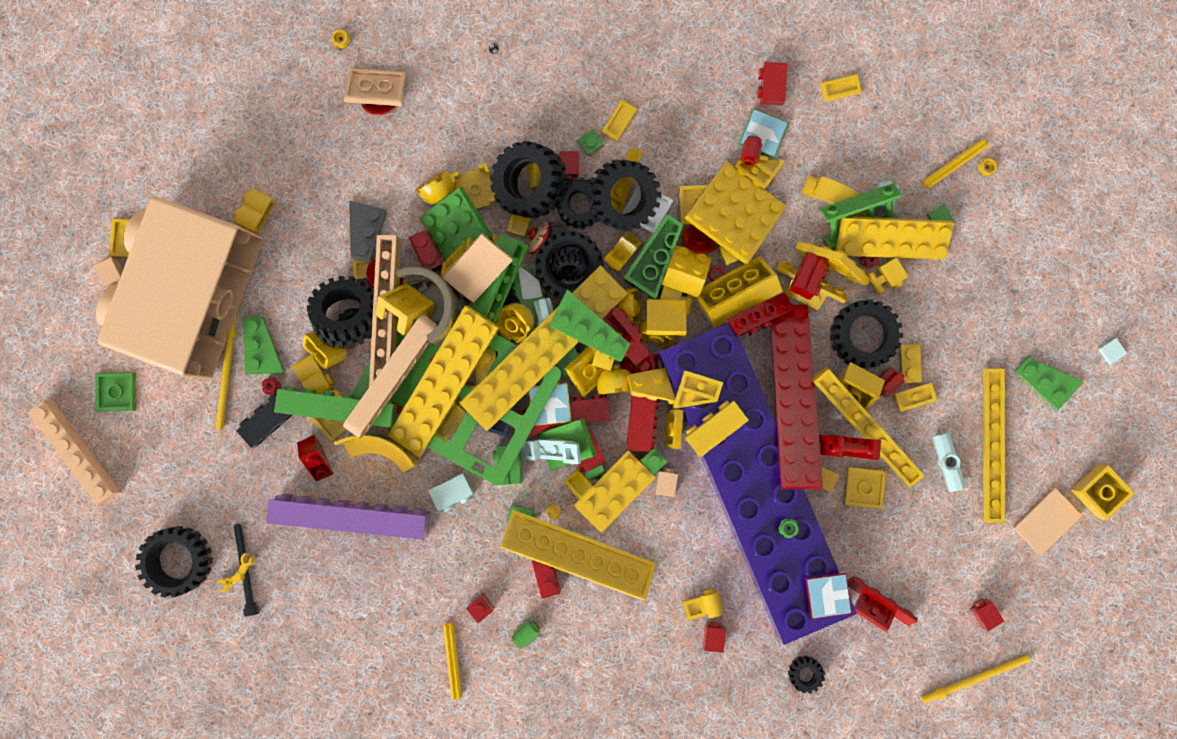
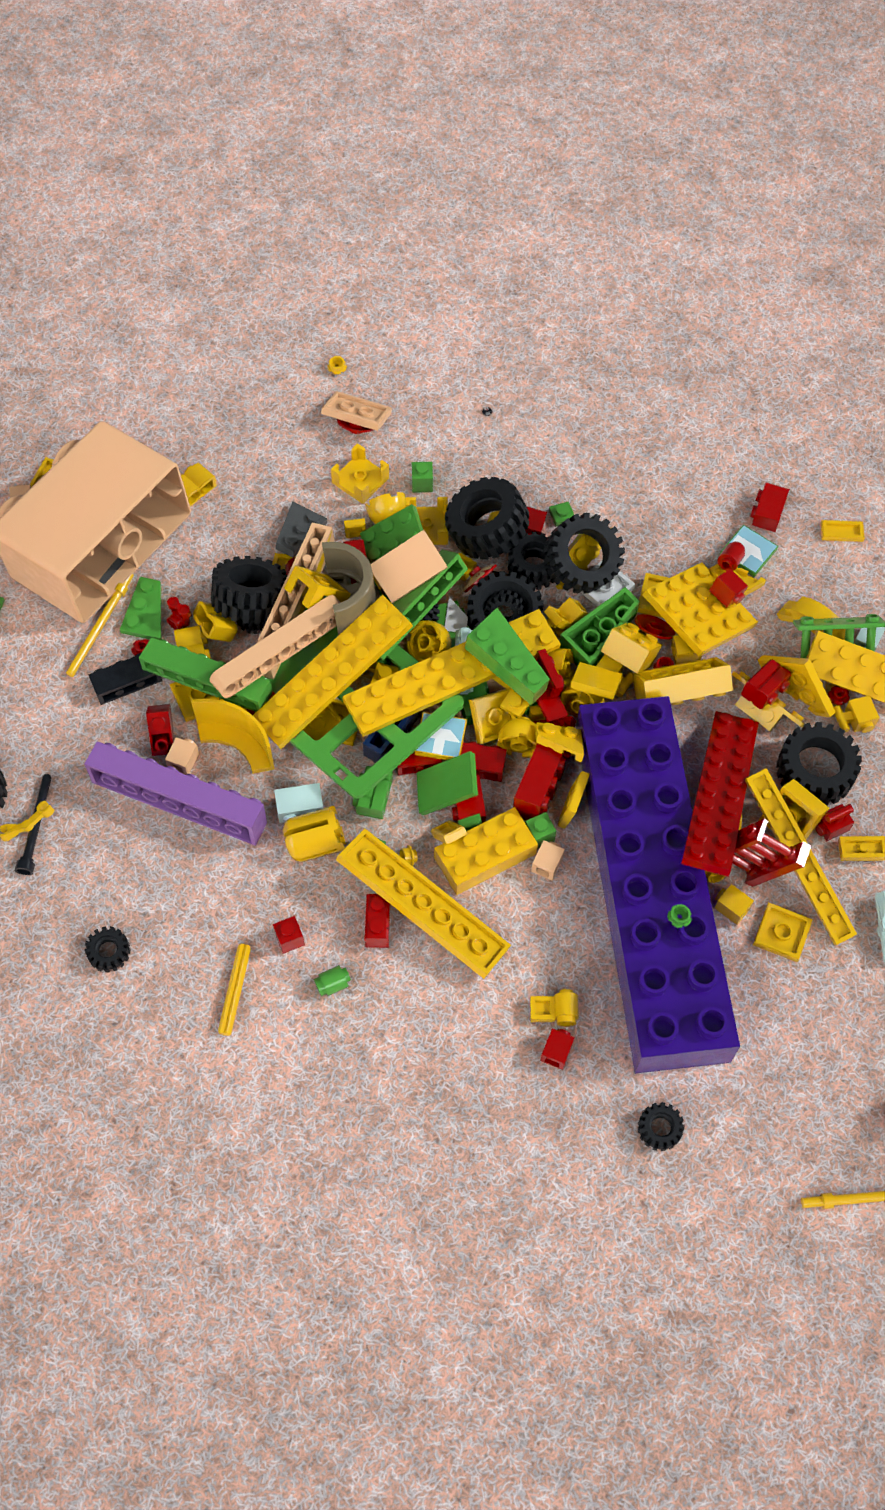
camera: 15 degrees right, 25 degrees down
(291, 348) = (180, 614): none -> red plate
(334, 667) = (102, 937): none -> black tyre
(341, 477) = (182, 755): none -> light nougat brick
(400, 156) = (360, 476): none -> yellow panel
(413, 213) = (354, 527): none -> yellow tile
(456, 143) = (422, 477): none -> bright green brick
(468, 510) = (313, 834): none -> yellow cylinder
(551, 449) = (426, 785): light aqua slope -> none
(619, 120) = (598, 501): yellow tile -> none
(696, 390) = (610, 743): yellow wing -> none
(715, 428) = (622, 786): yellow brick -> none
(757, 188) = (729, 588): none -> red brick
(760, 315) = (700, 709): red bracket -> none
(828, 595) = (709, 1005): tile -> none
(877, 607) = (770, 1069): red bracket -> none
(911, 363) = (865, 813): yellow plate -> none

